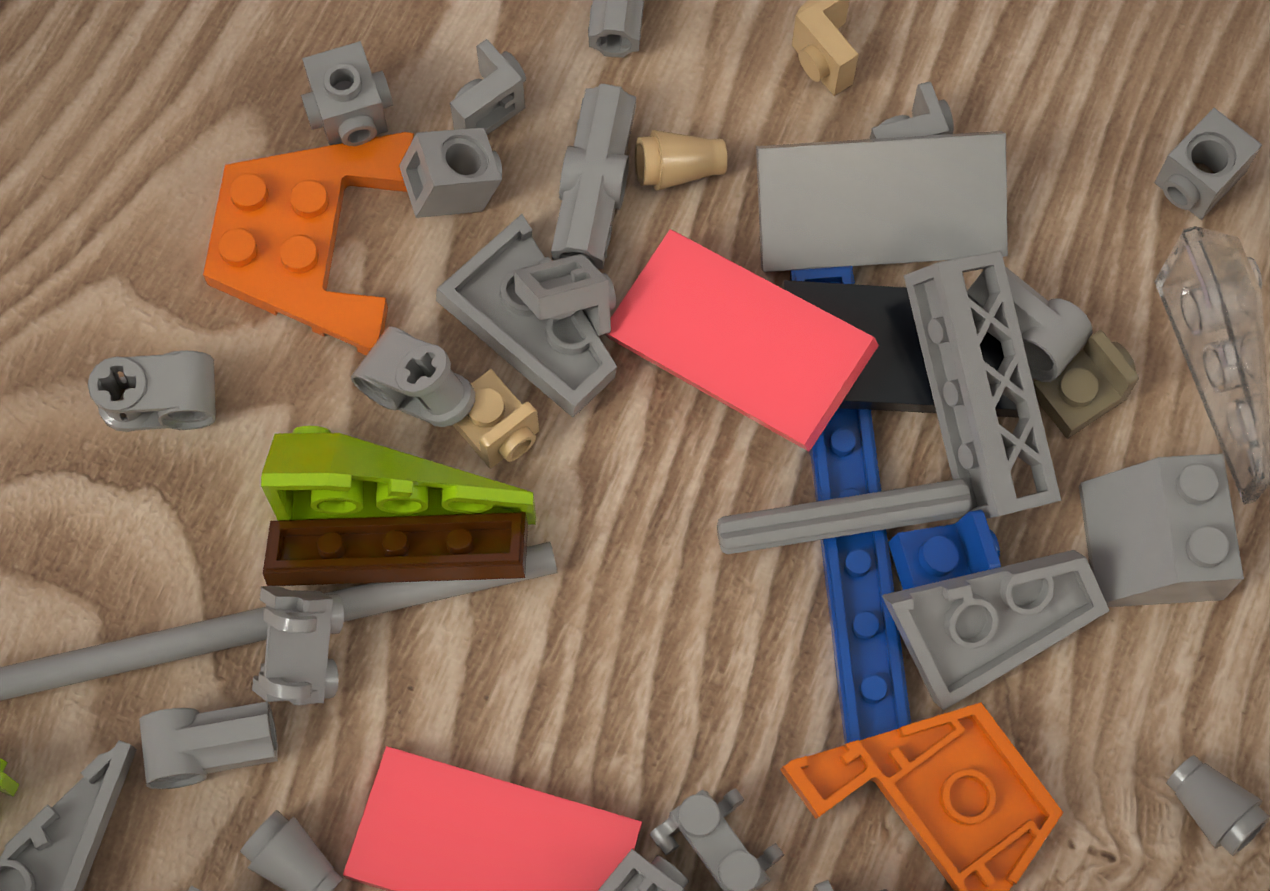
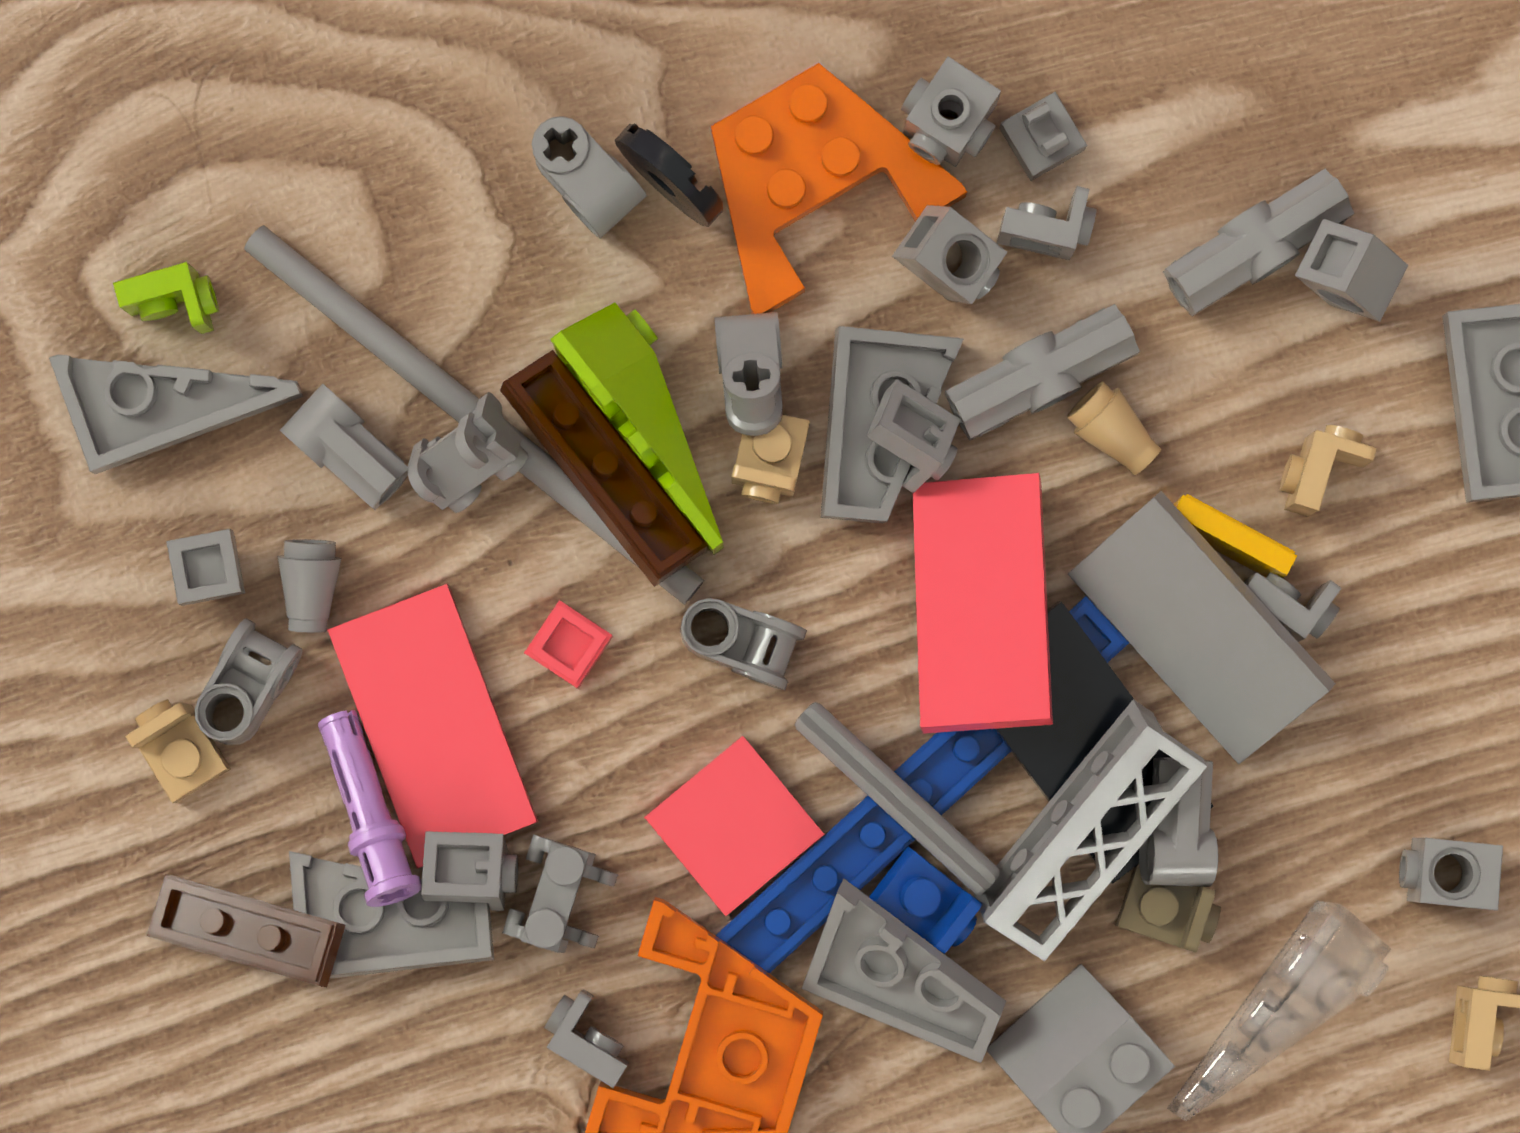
camera: 55 degrees right, 15 degrees up
(212, 319) = (669, 174): none -> black tile
(418, 56) = (1043, 136): none -> light grey tile
(515, 688) = (568, 644): none -> coral tile
(632, 539) = (746, 641): none -> light grey piece
(768, 666) = (734, 825): none -> coral tile
(844, 123) = (1237, 539): none -> yellow tile

